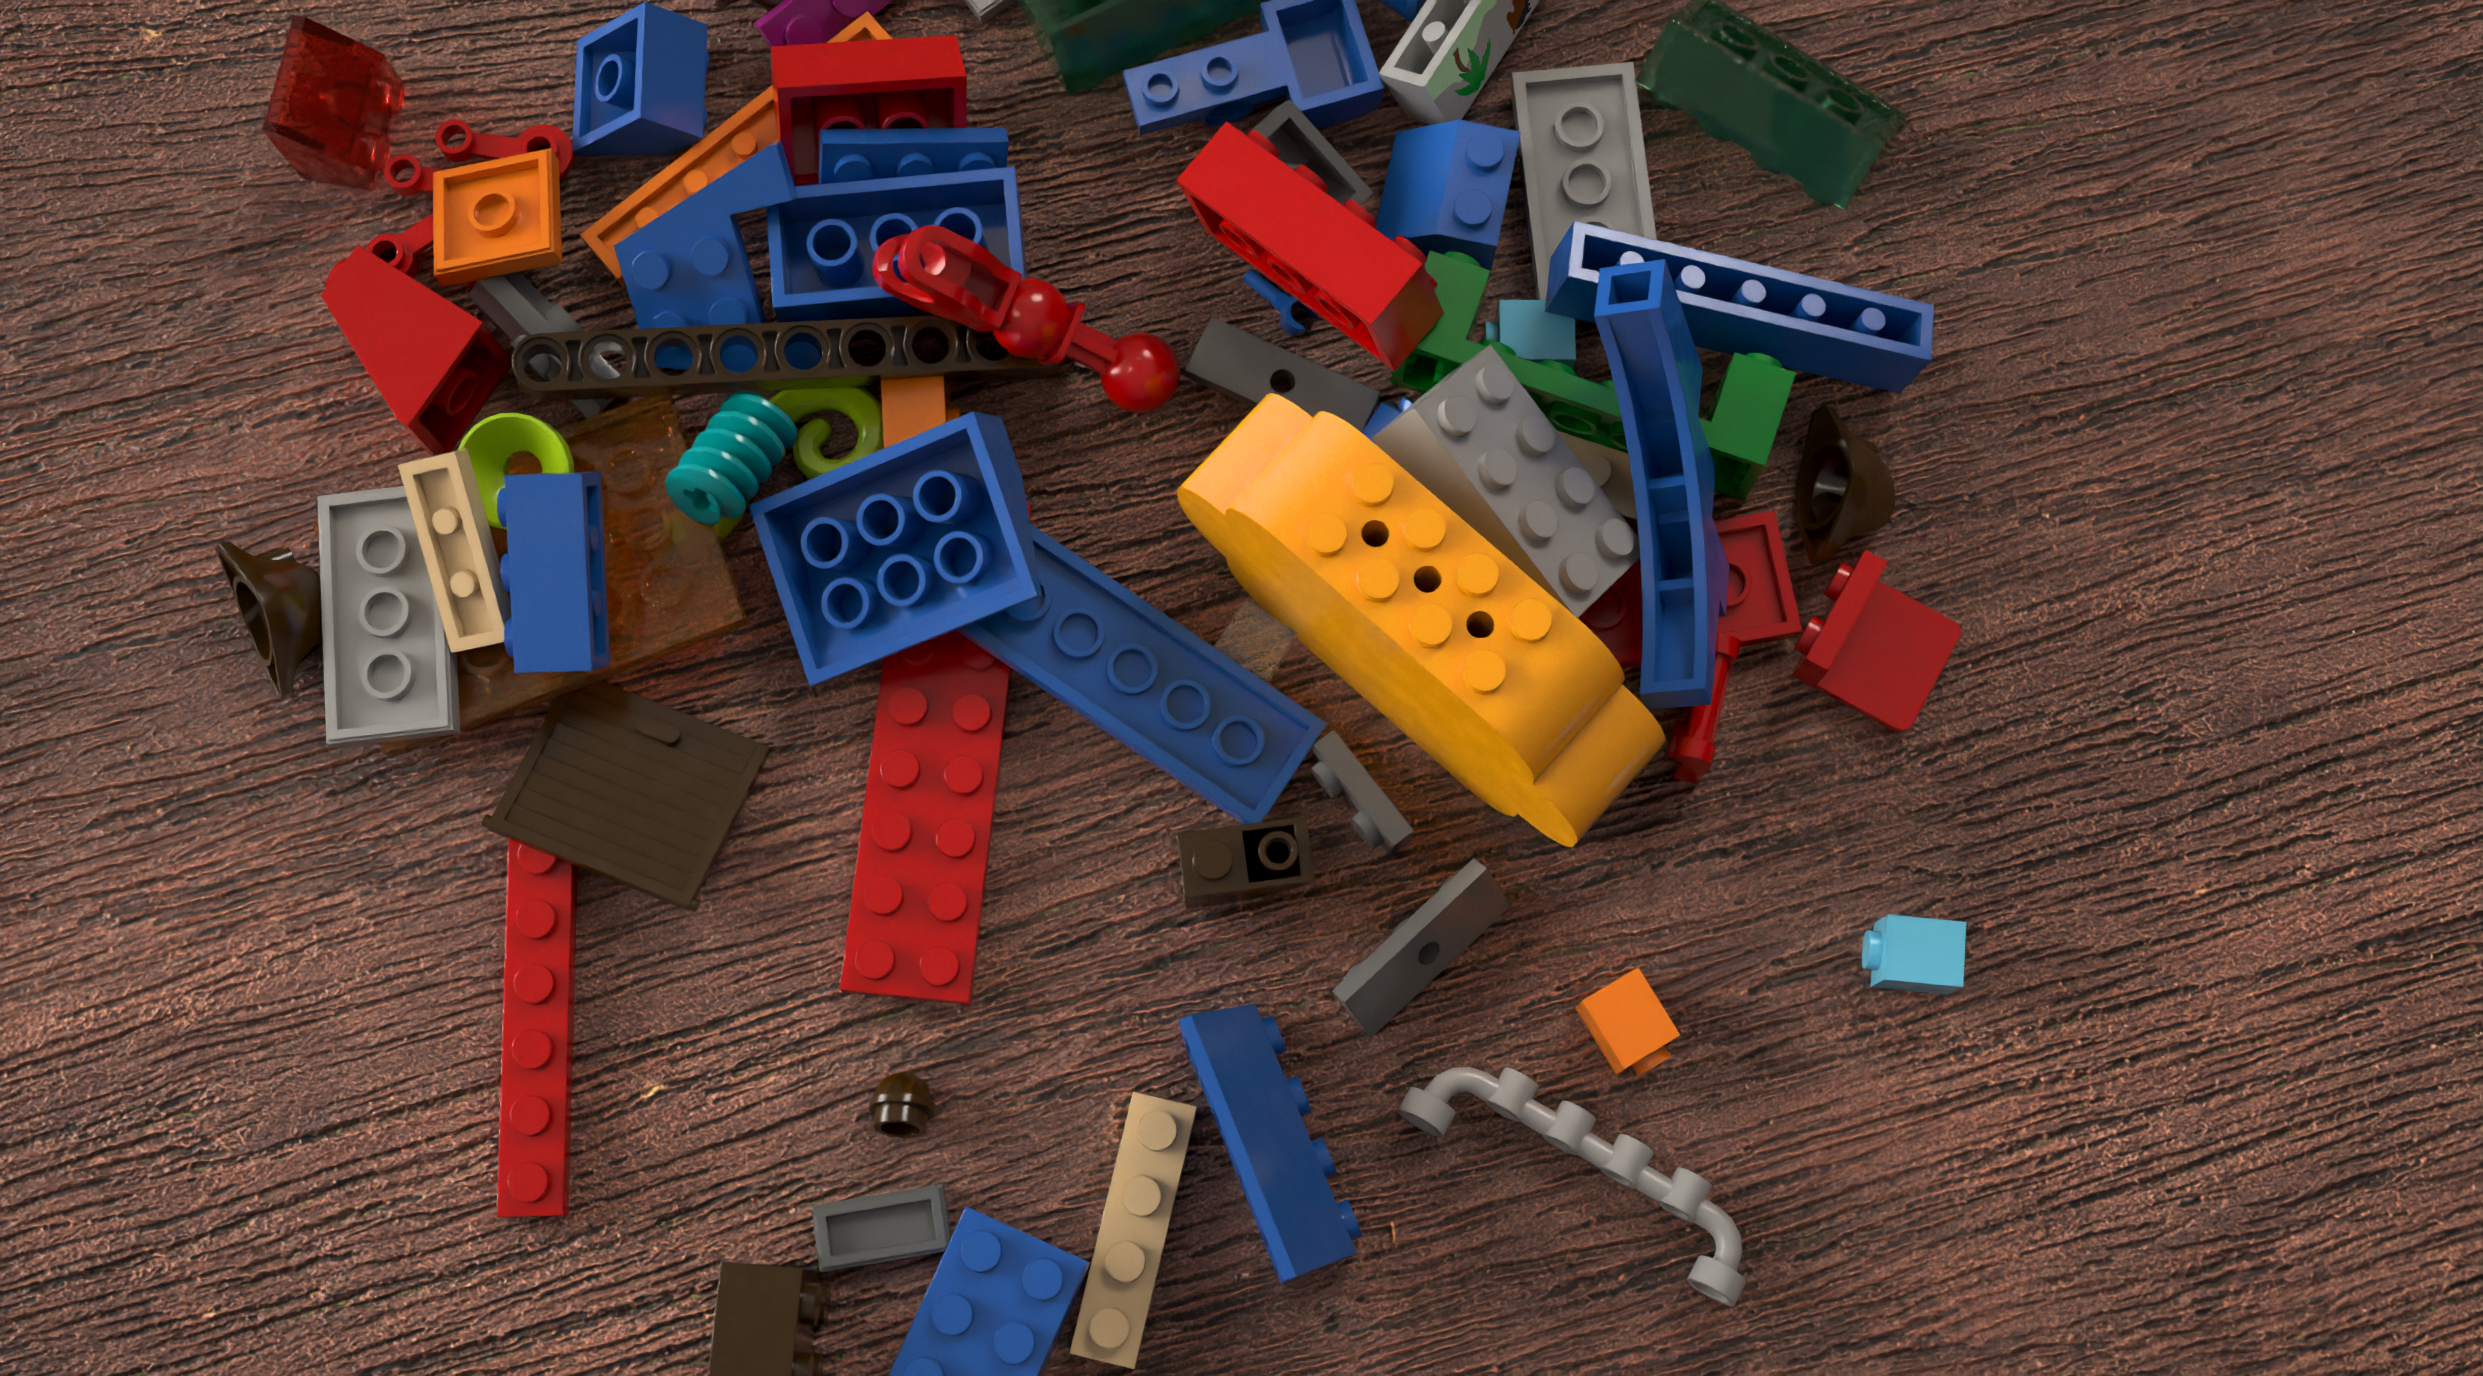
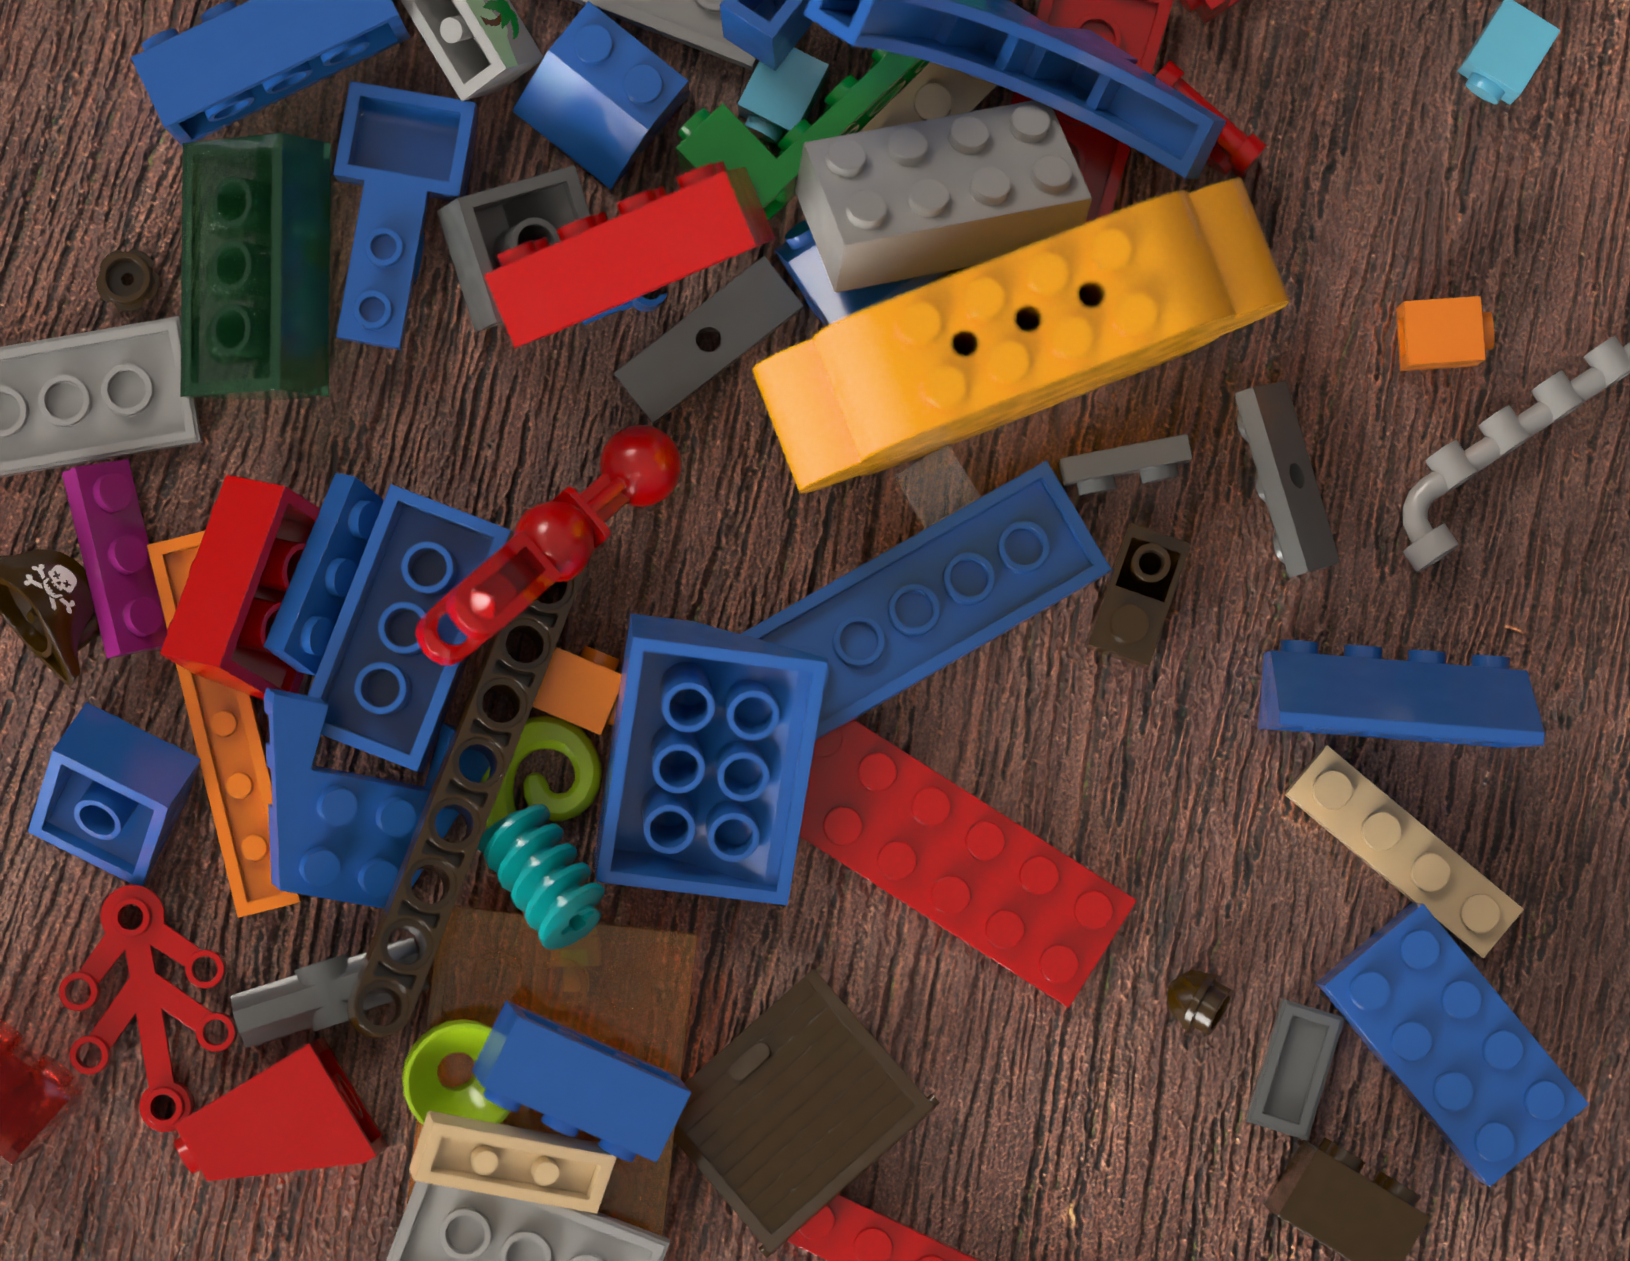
camera: 65 degrees left, 10 degrees up
(496, 217) = (187, 986): orange tile -> none

